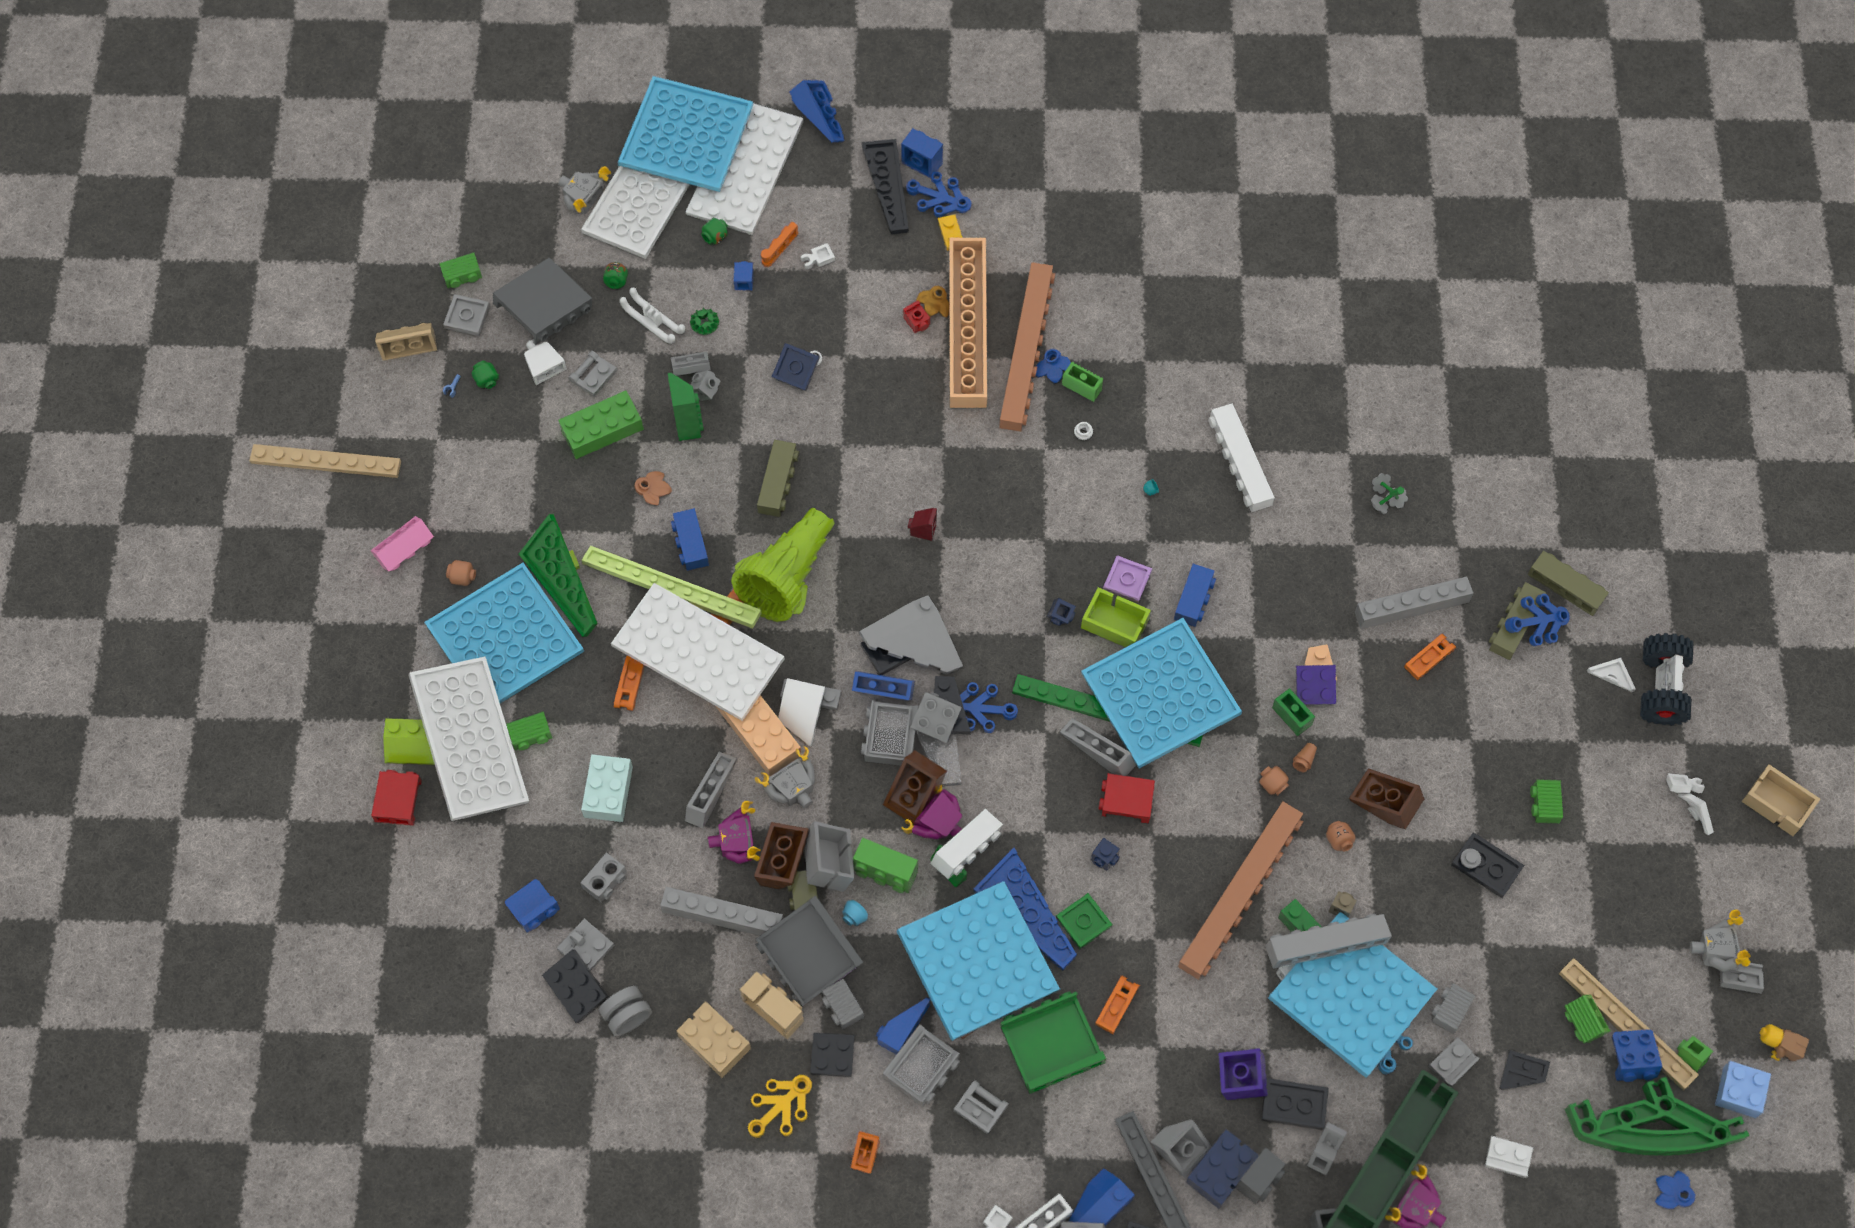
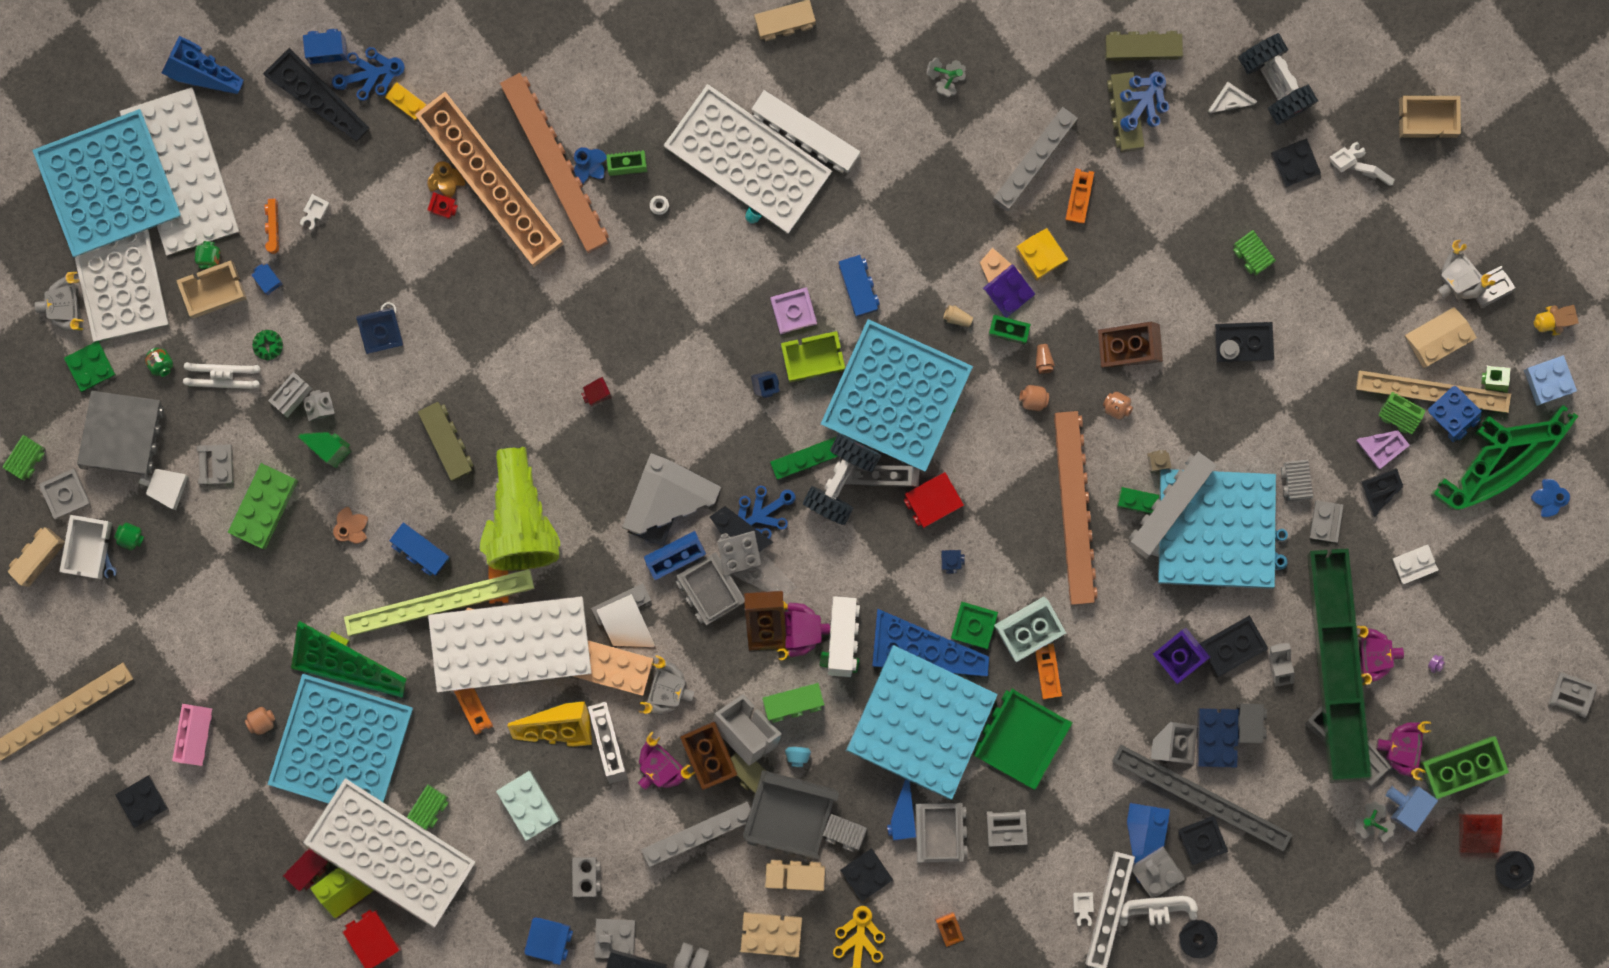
camera: 40 degrees left, 20 degrees up
(322, 566) = (141, 801): none -> black plate
(396, 706) = (306, 869): none -> dark red brick
(447, 358) = (85, 547): none -> white piece
(564, 245) = (90, 366): none -> green plate
(686, 747) = (562, 723): none -> yellow wedge
(699, 258) = (214, 290): none -> tan piece
(1073, 714) = (826, 502): none -> black plate
(1129, 955) = (1030, 629): none -> light aqua brick
(1180, 446) = (747, 158): none -> white plate
(1257, 674) = (957, 316): none -> tan cone
(1288, 370) = (785, 20): none -> tan brick
(1364, 676) = (1041, 253): none -> yellow slope
(1549, 1037) = (1383, 447): none -> lavender wing
(1635, 759) = (1295, 163): none -> black plate
(1666, 985) = (1440, 337): none -> tan slope

